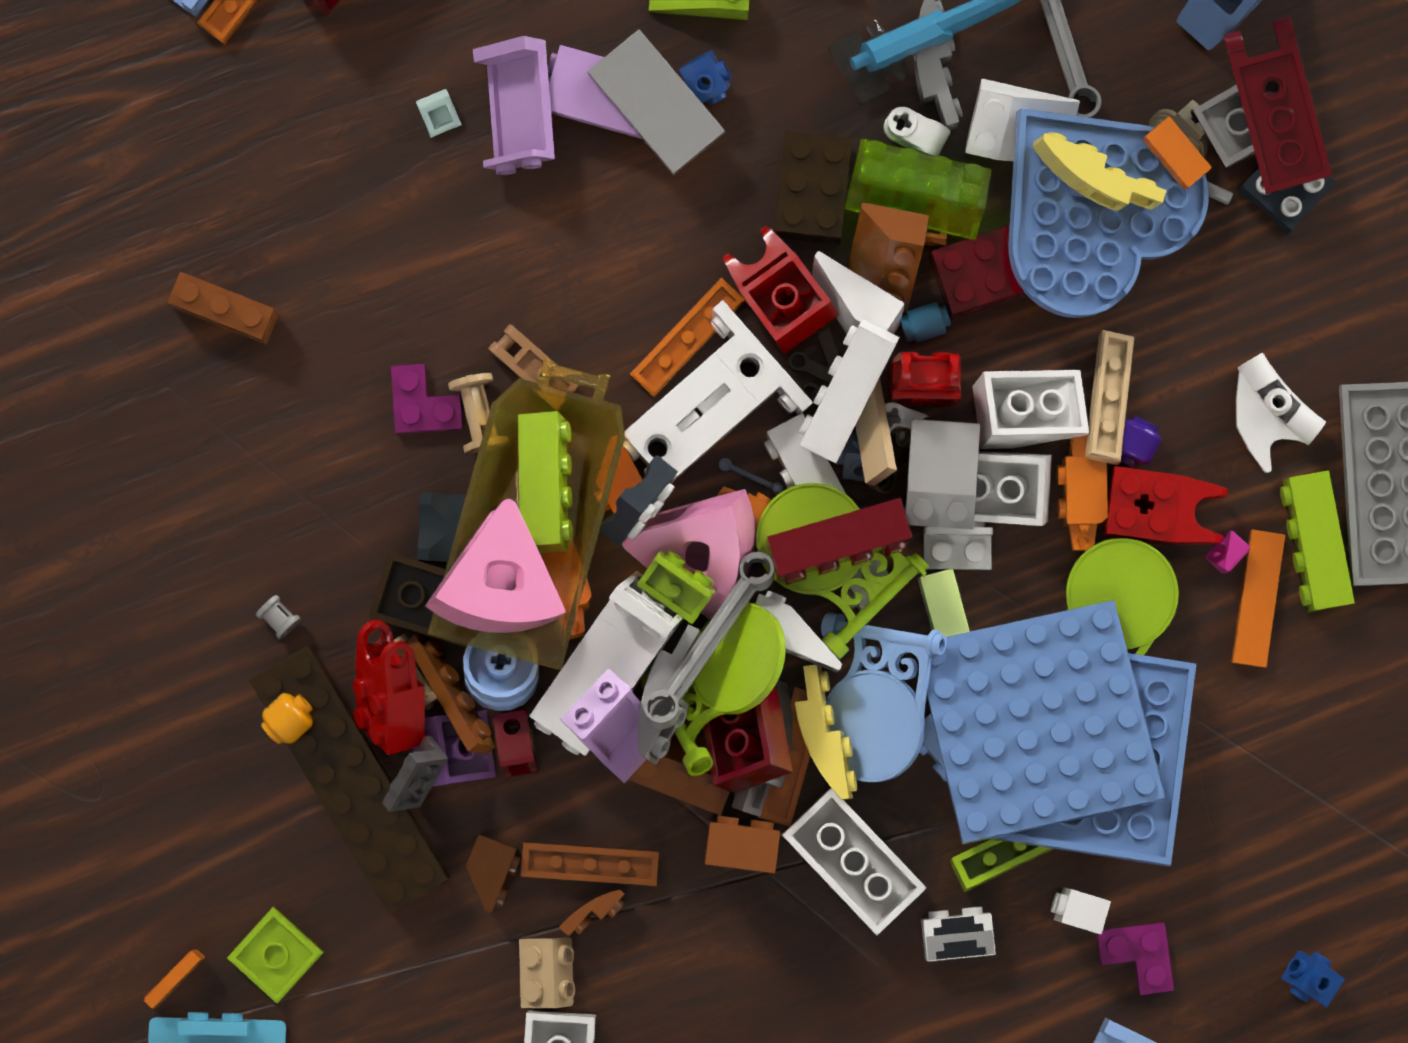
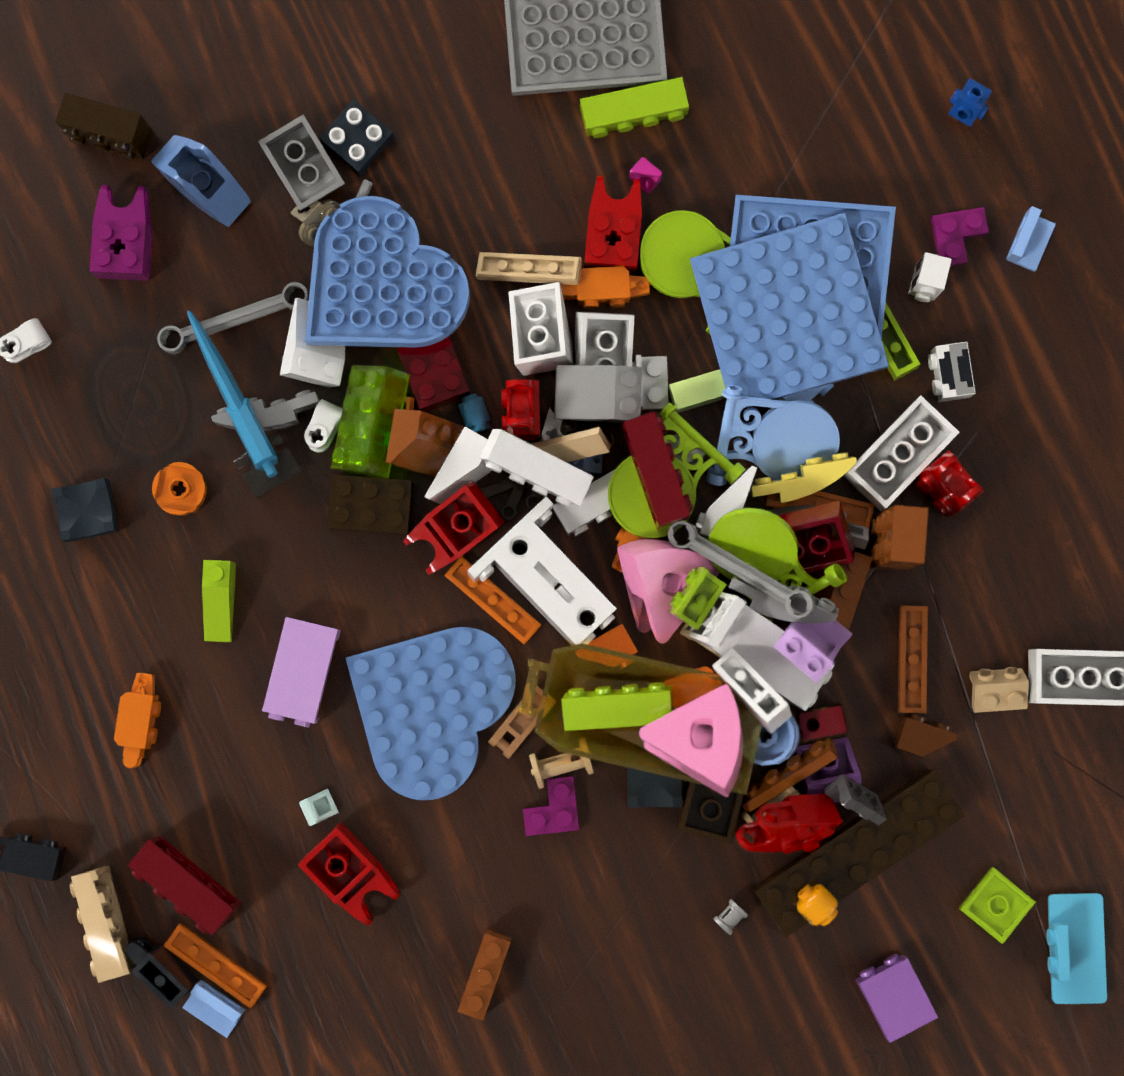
camera: 85 degrees left, 0 degrees up
(168, 818) = (896, 997): none -> medium lavender brick
(174, 978) = (1021, 985): orange tile -> none
(349, 151) = (350, 882): none -> red brick
(518, 103) = (311, 742): lavender panel -> none
(556, 644) = (753, 690): none -> white slope
(559, 250) = (428, 703): none -> medium blue plate
(602, 905) = (944, 648): dark orange slope -> none
(640, 502) = (633, 628): black brick -> none
(656, 102) = (306, 631): light grey tile -> none
(707, 66) = (277, 596): blue brick -> none
(726, 465) = (609, 525): sand blue hinge -> none
(810, 918) = (948, 484): none -> red brick
(1084, 171) = (356, 286): light yellow slope -> none
(1139, 441) = (562, 244): dark purple head -> none
(1176, 153) = (335, 220): orange tile -> none
(1258, 598) = (680, 152): orange tile -> none
(1261, 421) = (541, 153): white pin -> none
(1282, 123) = (310, 139): dark red hinge -> none

